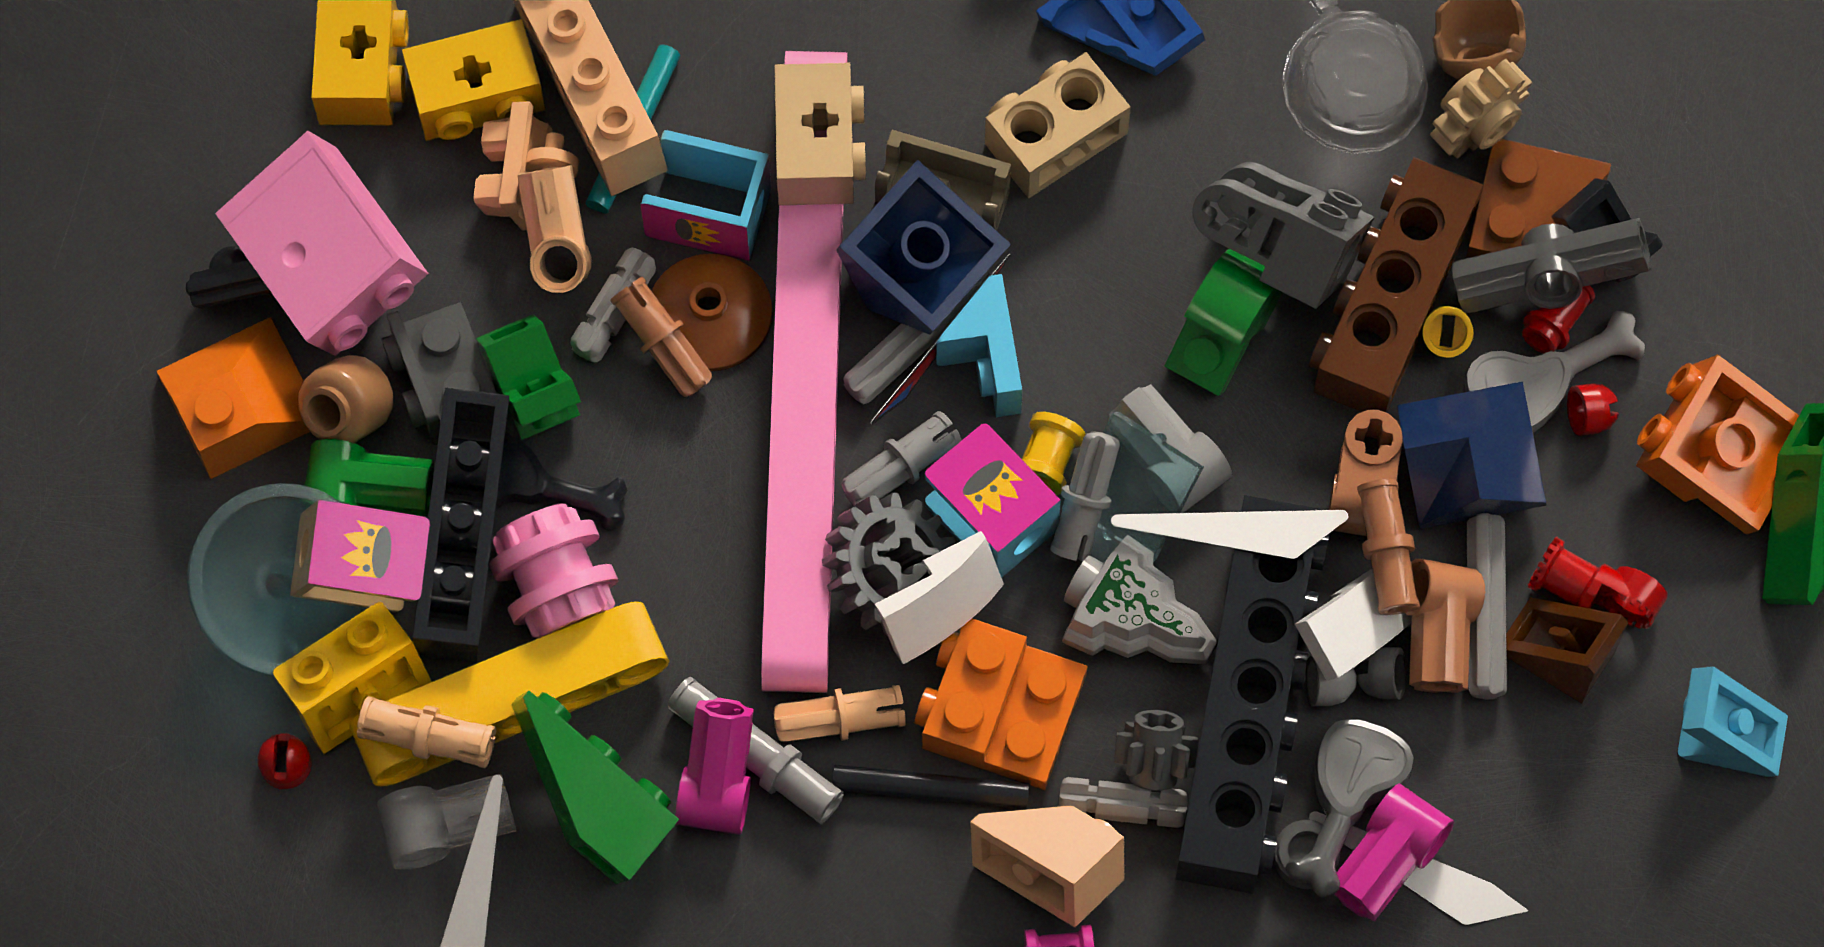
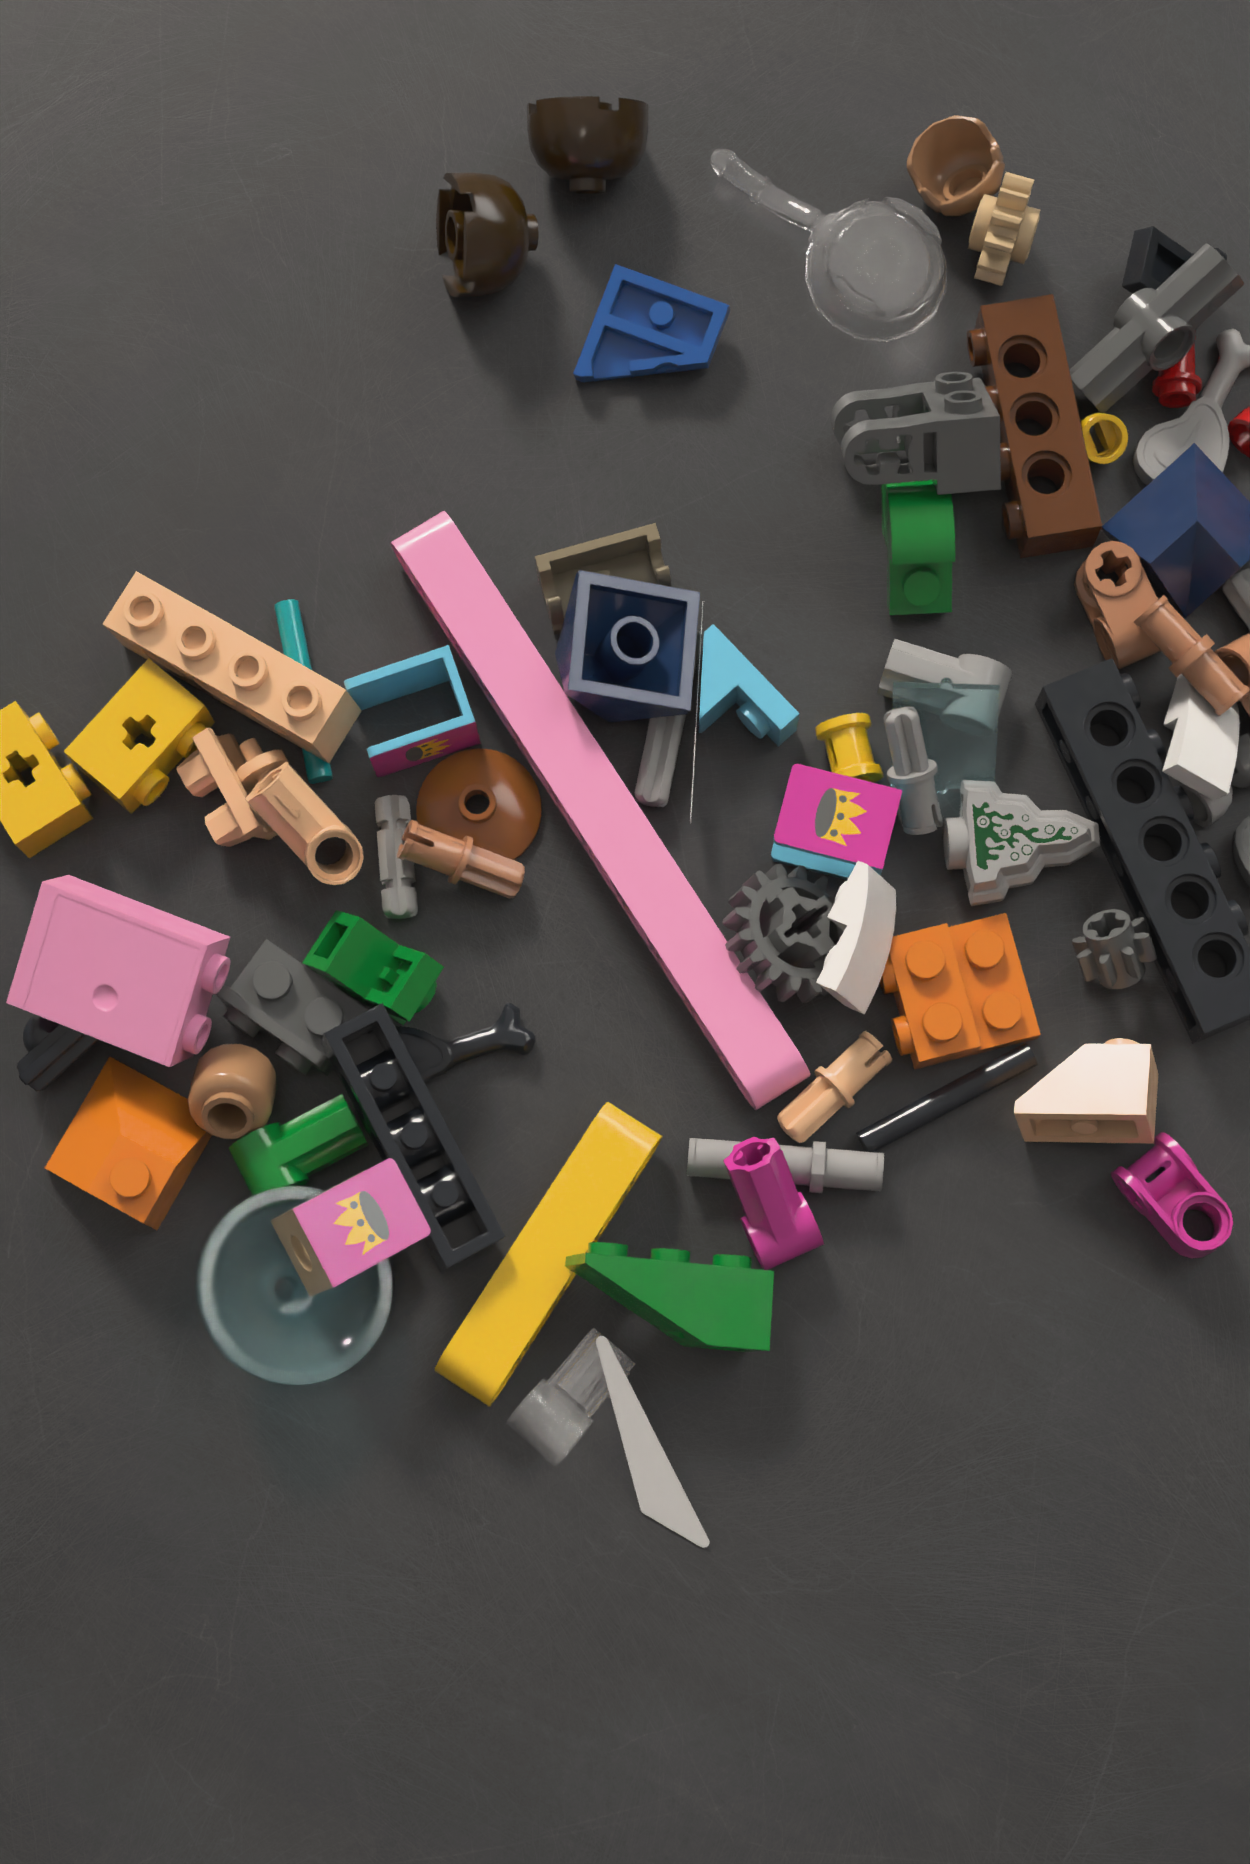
camera: 30 degrees left, 10 degrees up
(297, 761) = (408, 1426): red hinge -> none
(341, 669) = (407, 1327): yellow bracket -> none
(426, 732) = (513, 1340): light nougat pin -> none
(552, 569) = (517, 1126): bright pink piece -> none
(811, 101) = (485, 636): tan brick -> none
(901, 460) = (732, 837): light grey axle -> none
(1066, 133) = (671, 465): tan brick -> none
(1125, 802) = (1111, 1009): light grey axle -> none
(1264, 532) = (1081, 708): white sticker -> none
(1524, 191) = (1085, 277): dark orange wing -> none

